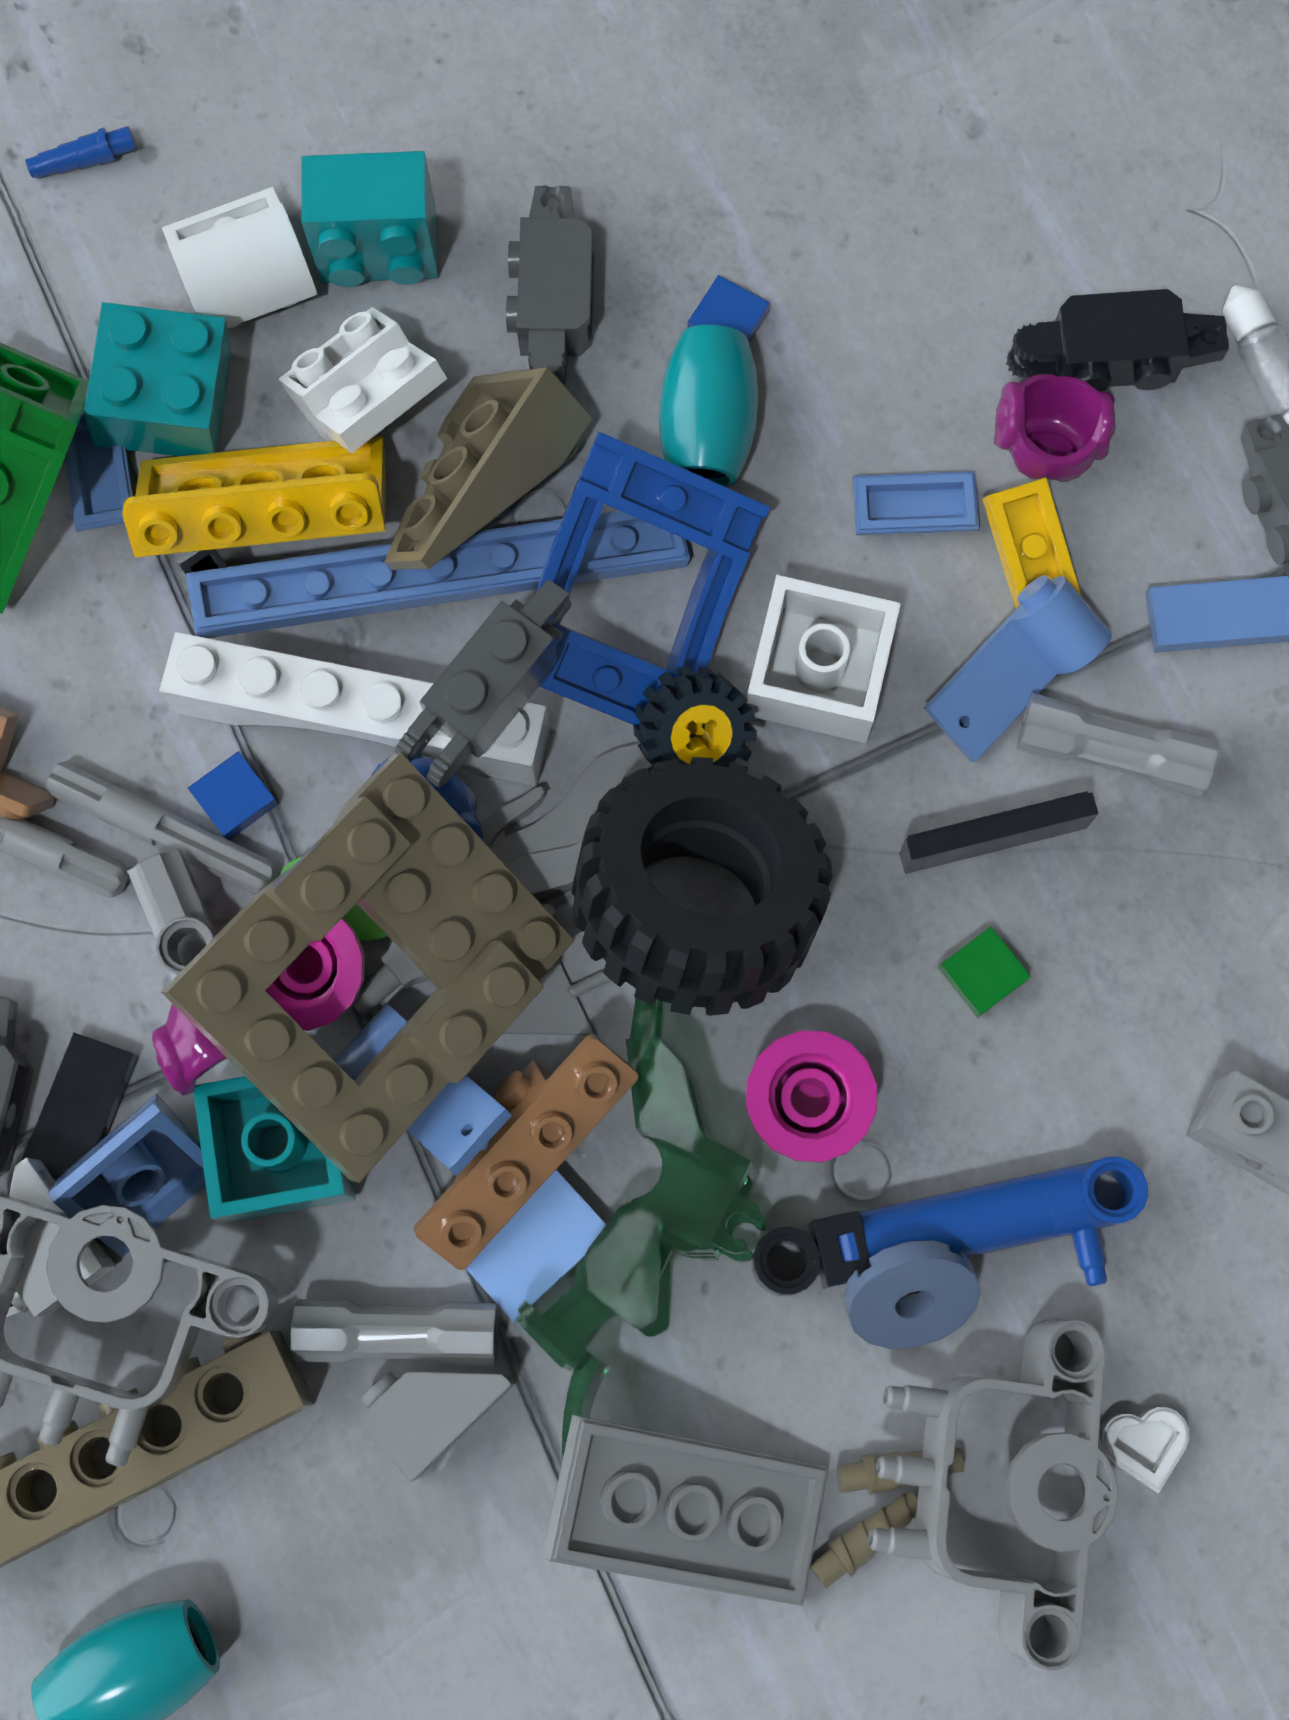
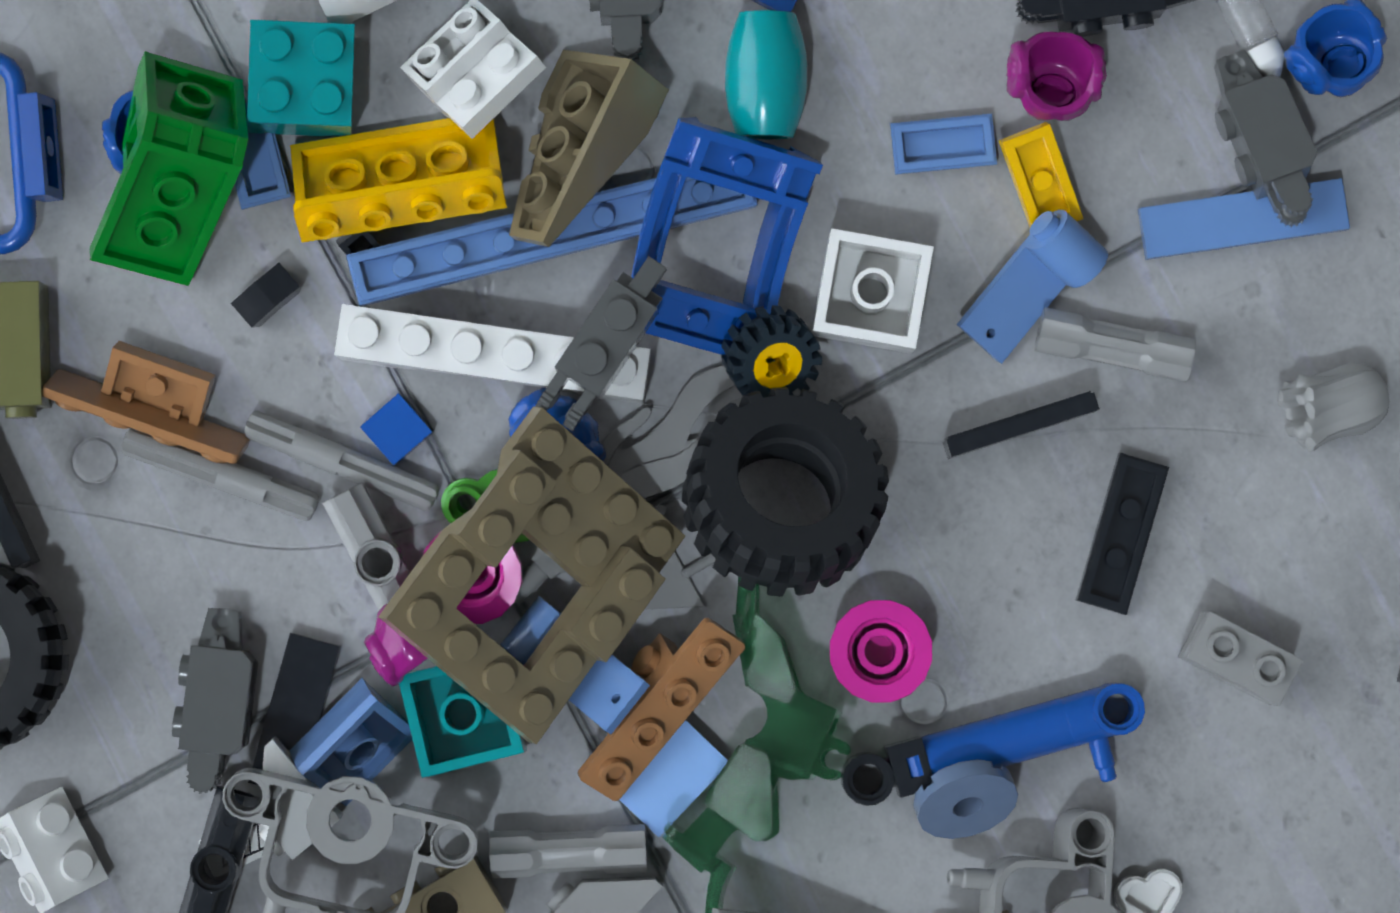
camera: 10 degrees left, 10 degrees up
(93, 629) = (266, 296): none -> black piece
(984, 972) = (1014, 538): green tile -> none
(1119, 976) = (1122, 533): none -> black tile

